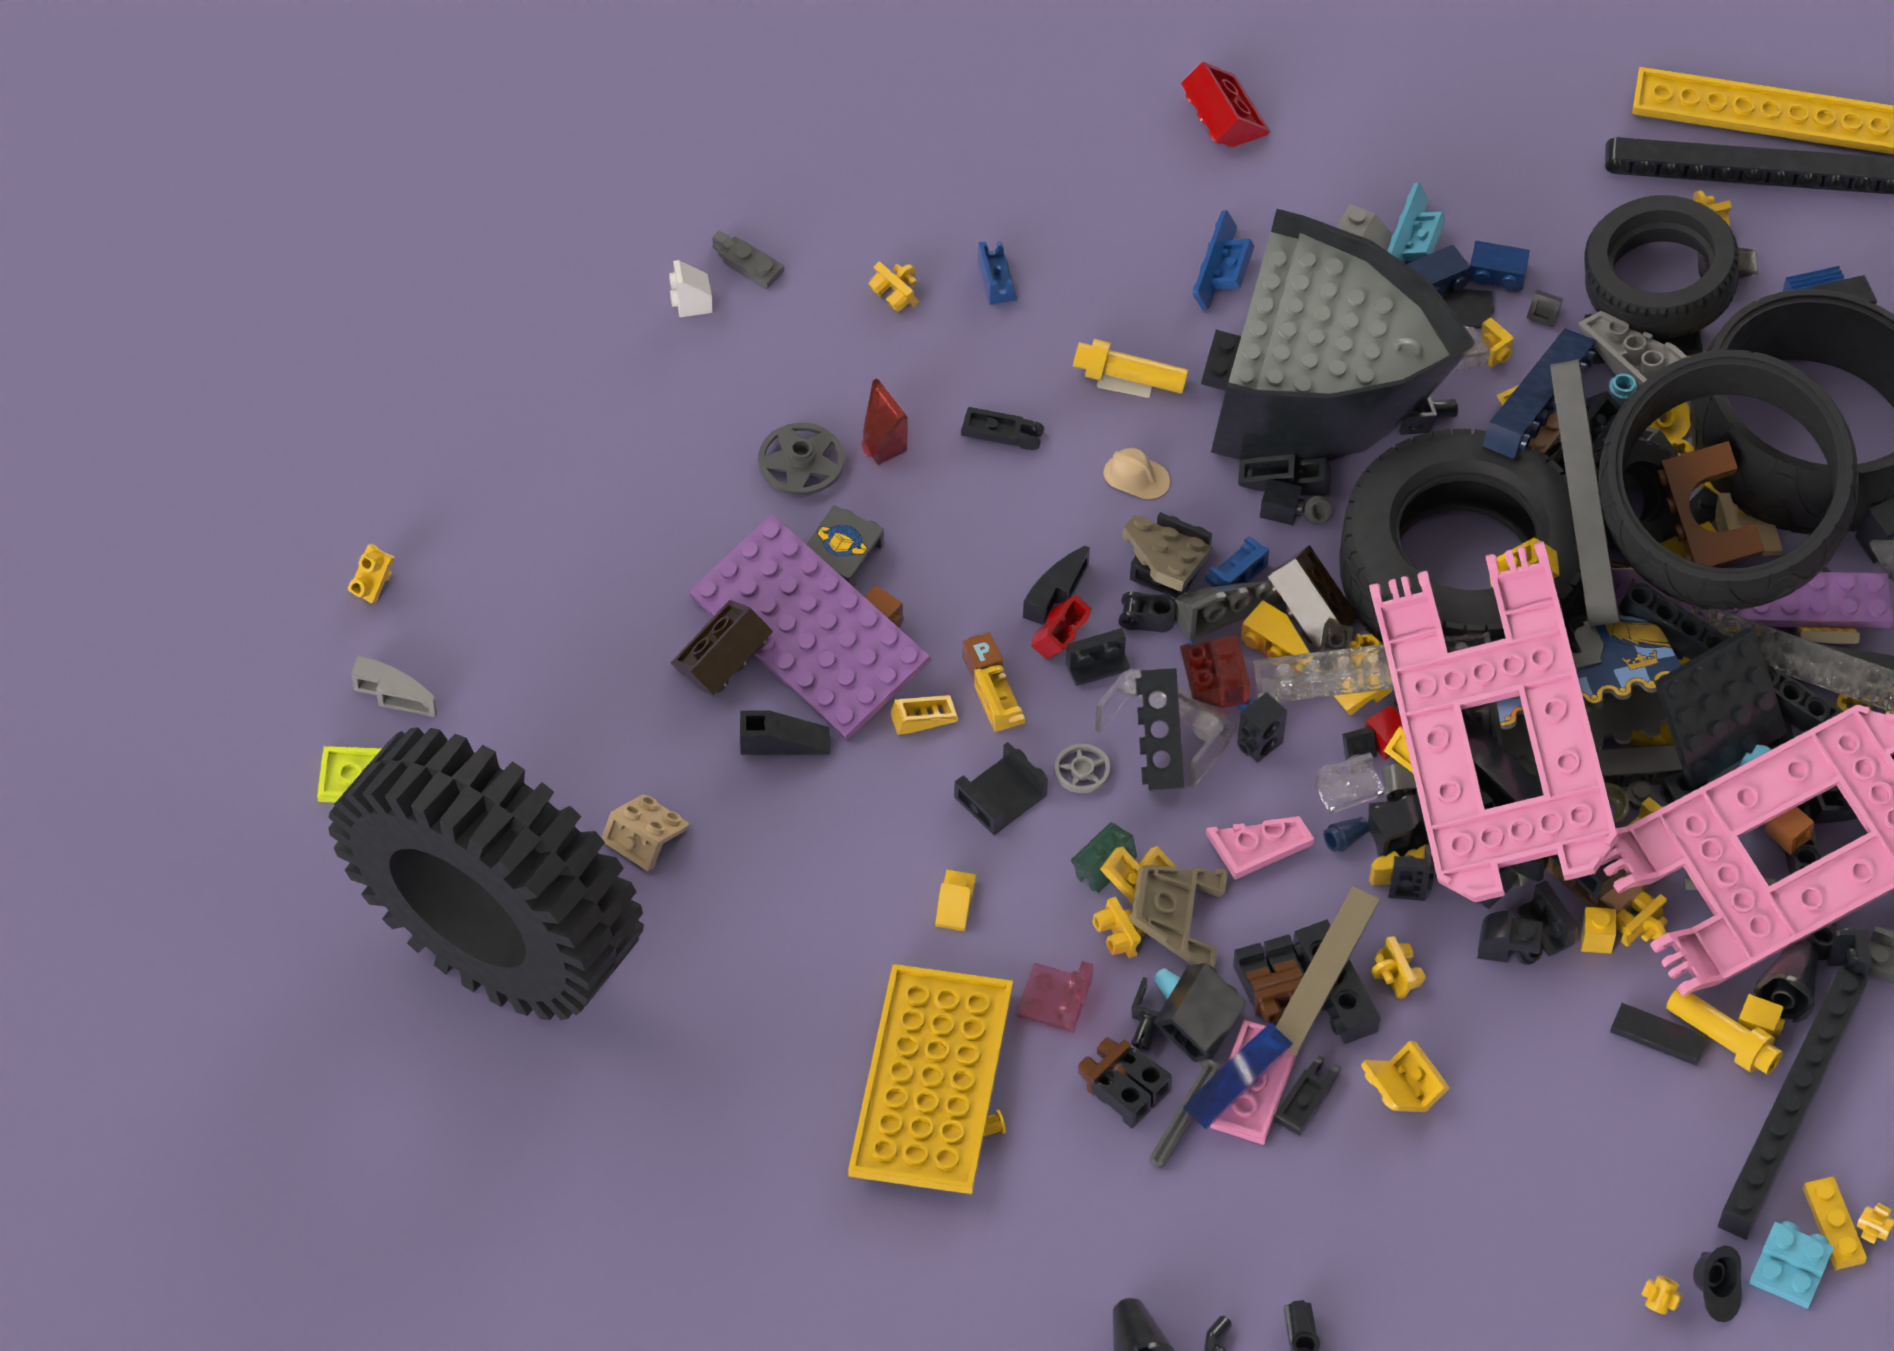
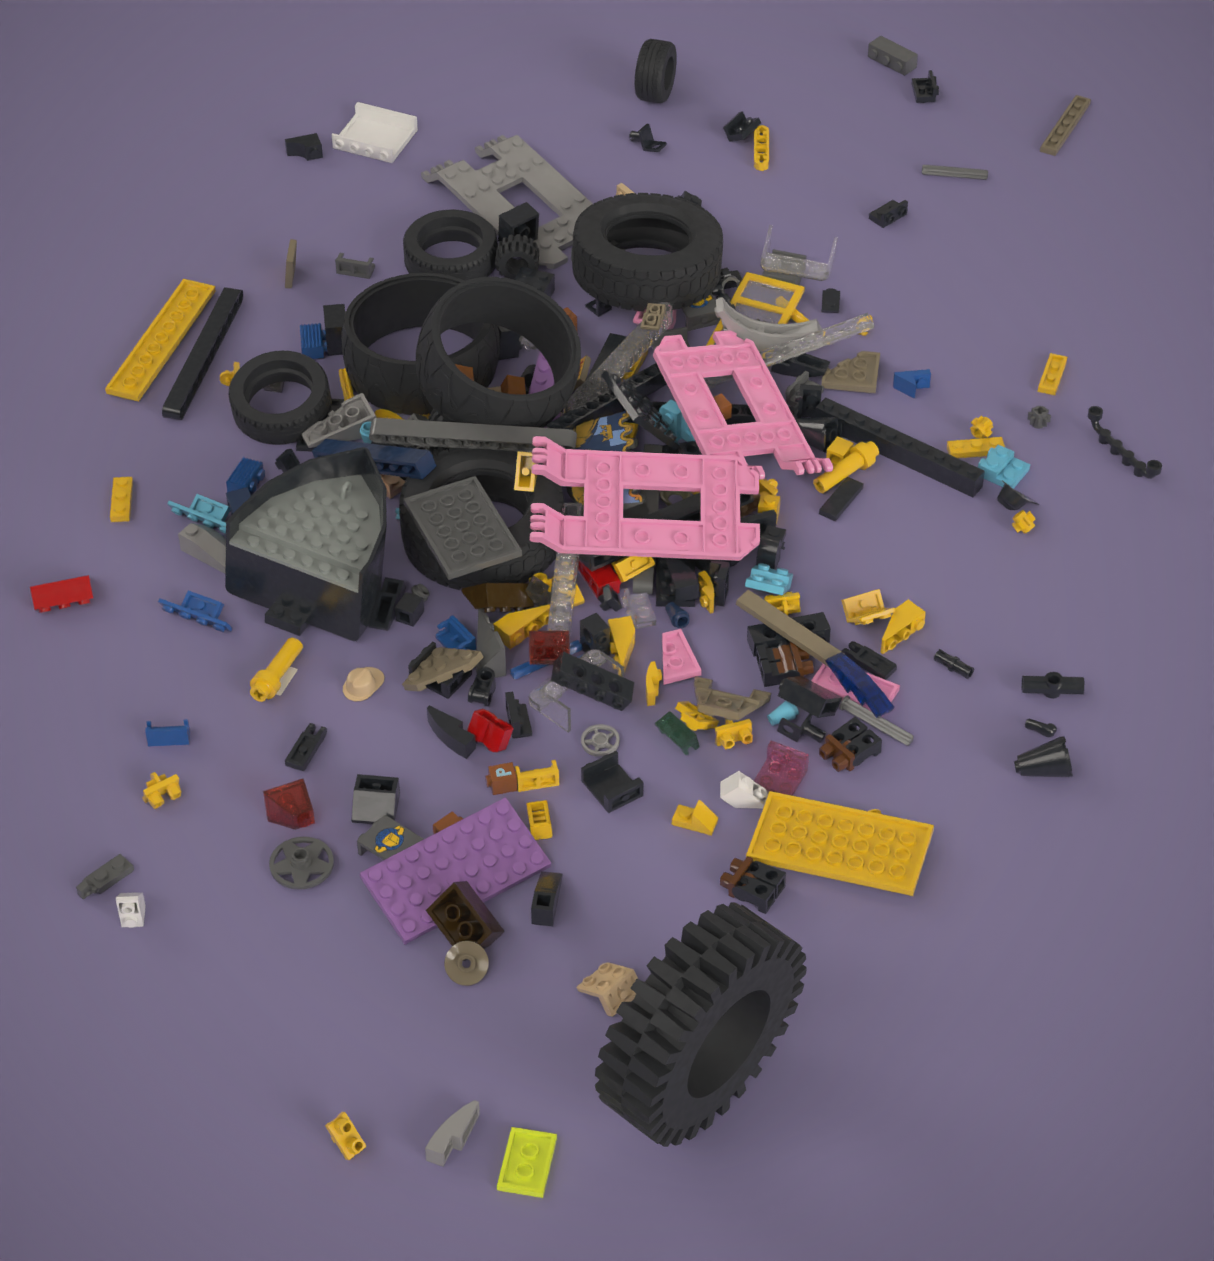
camera: 80 degrees left, 10 degrees down
(656, 661) = (477, 958): none -> dark tan dish
(844, 979) = (754, 882): none -> black hips
(913, 517) = (375, 798): none -> slope
(1009, 950) = (742, 792): none -> white slope
(1204, 812) = (652, 683): none -> yellow slope
(1275, 769) = (622, 639): none -> yellow slope
(1326, 1212) = (953, 664): none -> black pin
(1387, 506) = (462, 527): none -> dark grey plate
(1390, 1131) = (902, 624): none -> yellow slope
(1426, 136) = (121, 499): none -> yellow plate
(1436, 942) = (769, 579): none -> medium azure plate

